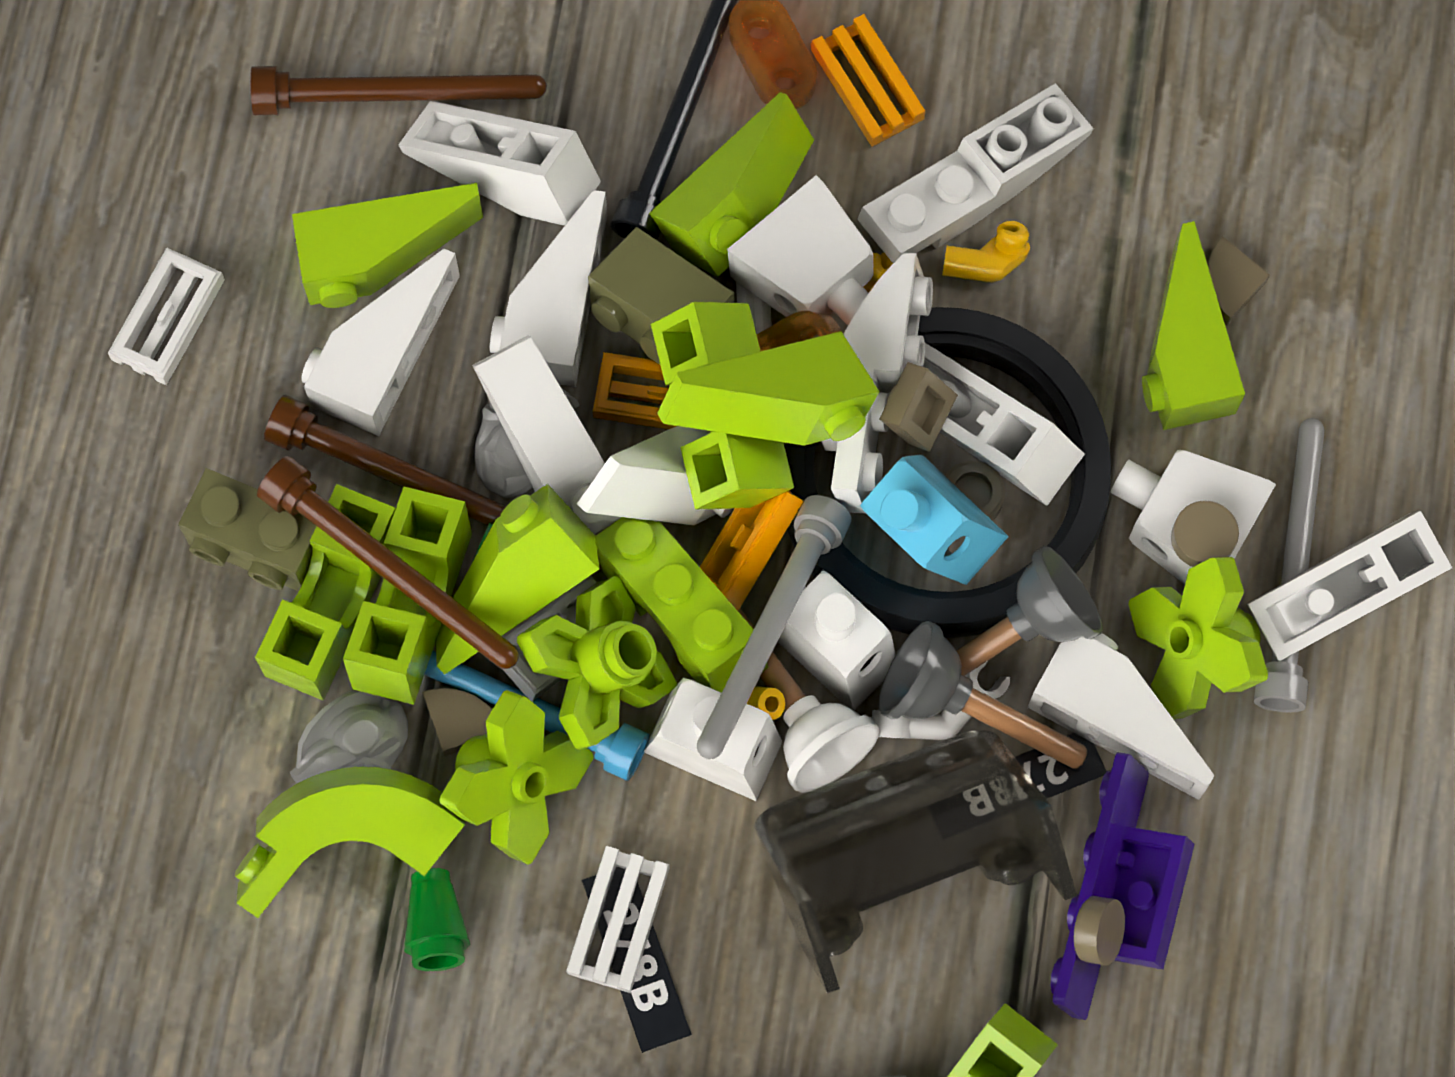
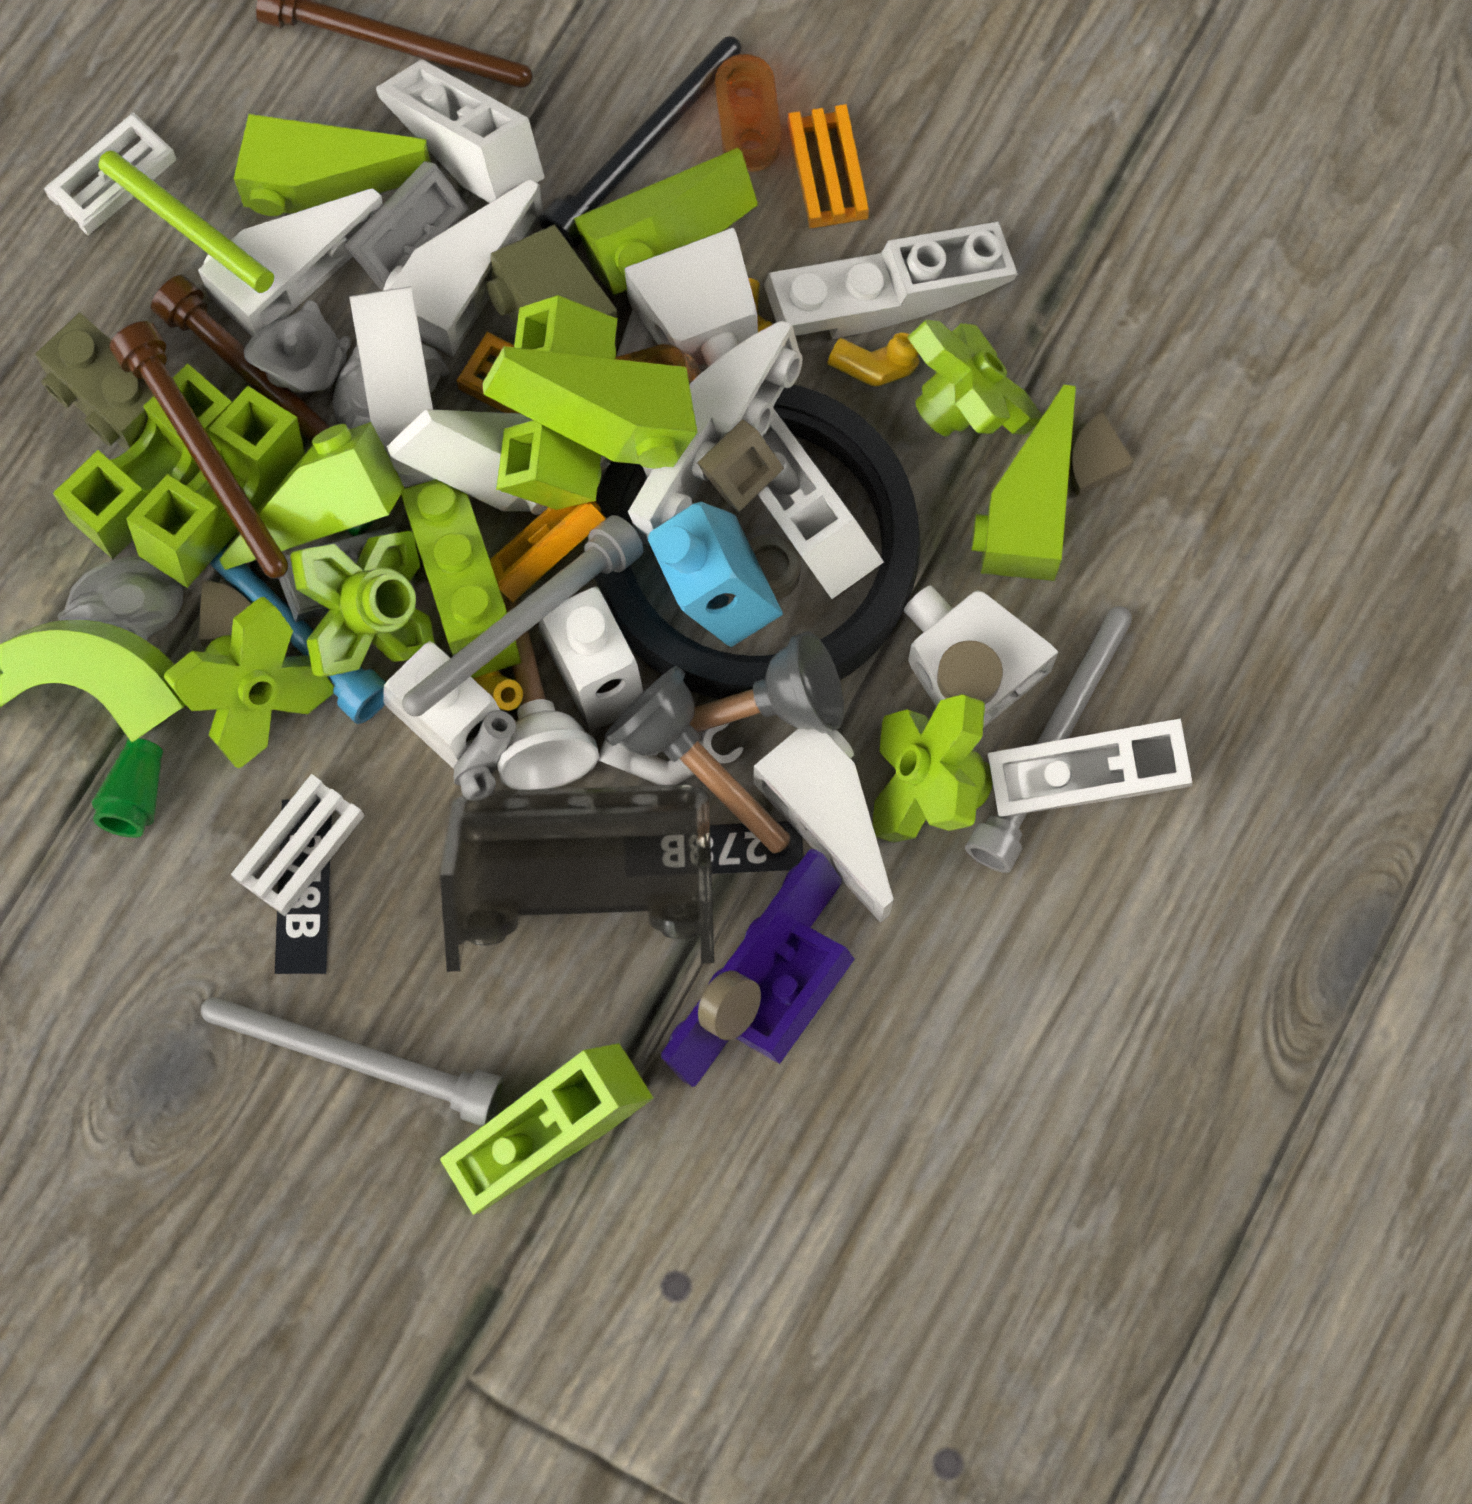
camera: 20 degrees right, 0 degrees up
(273, 342) = (186, 221): none -> lime bar
(429, 432) = (299, 351): none -> light grey hat
(485, 273) = (408, 219): none -> light grey plate
(771, 771) = (481, 757): none -> light grey arm
(1090, 252) = (968, 383): none -> lime plant

